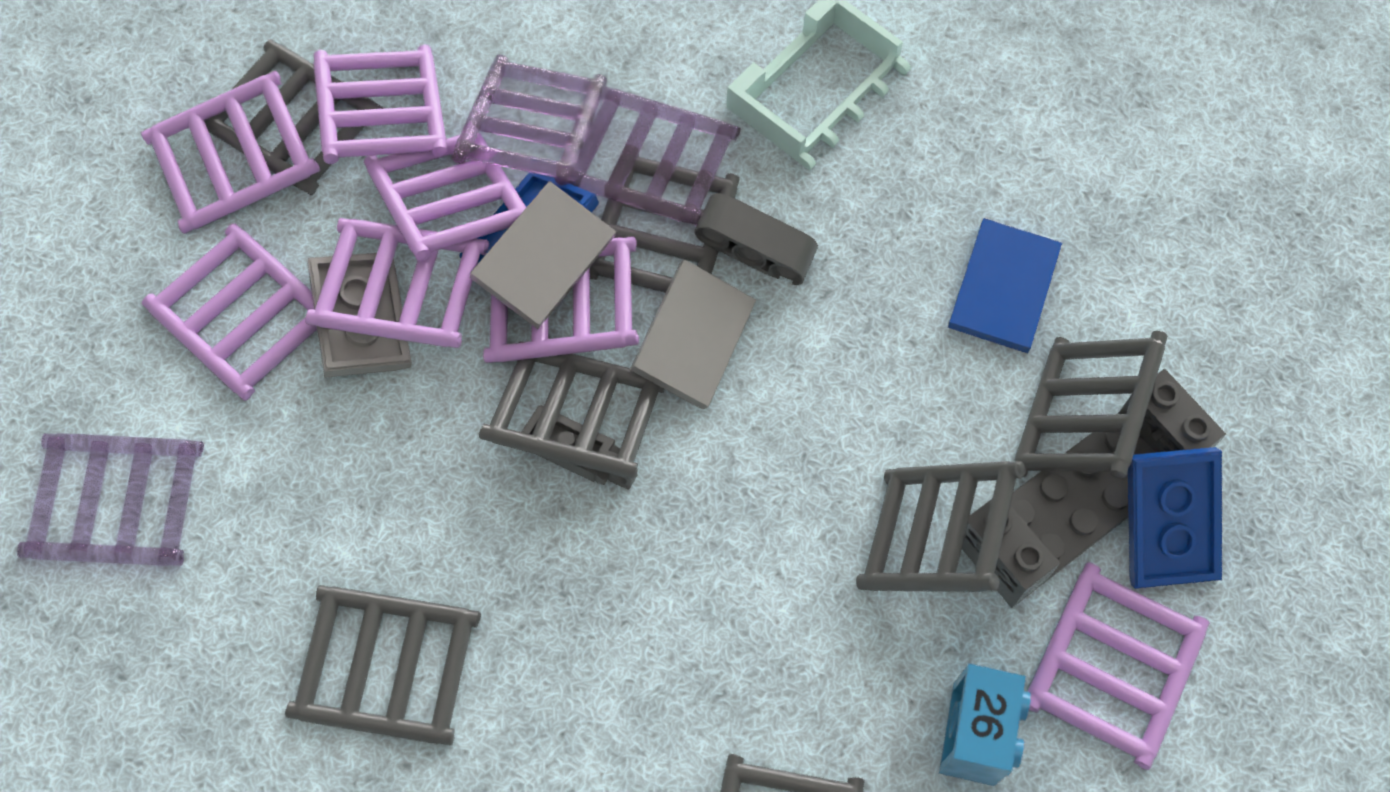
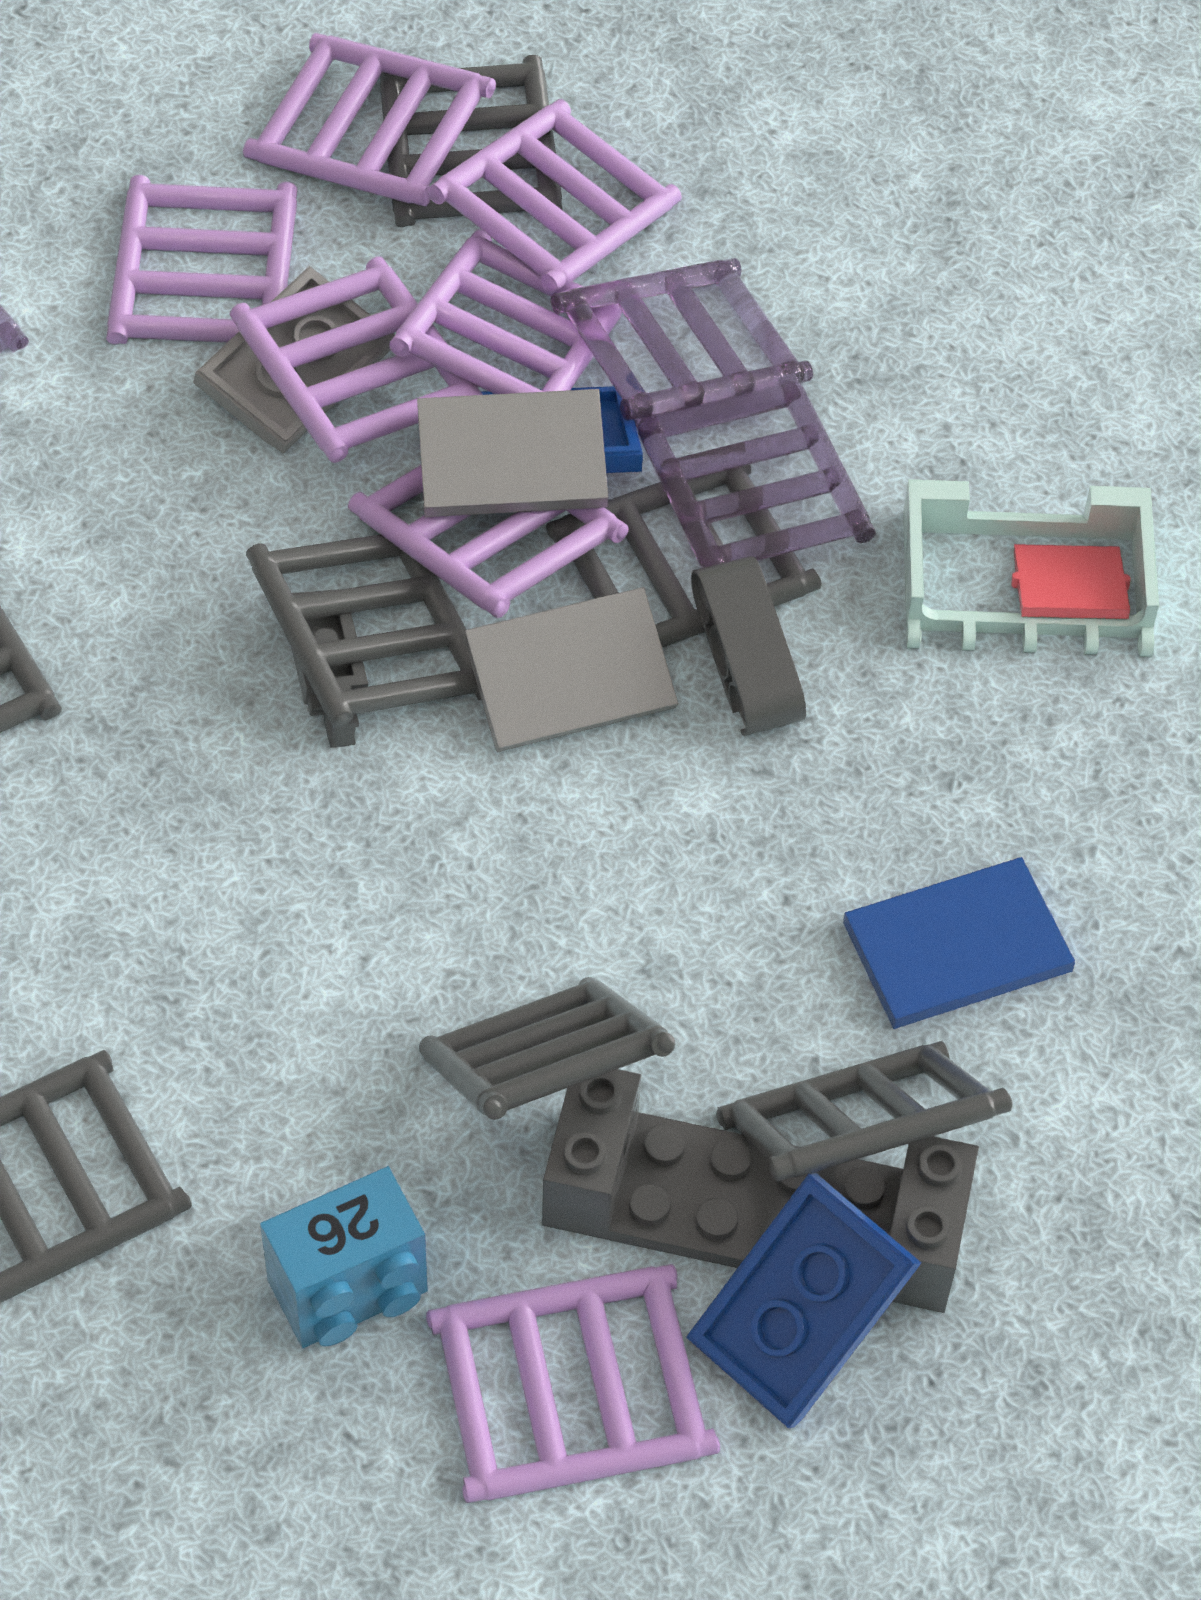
camera: 50 degrees right, 10 degrees down
(839, 68) = (1071, 581): none -> coral piece

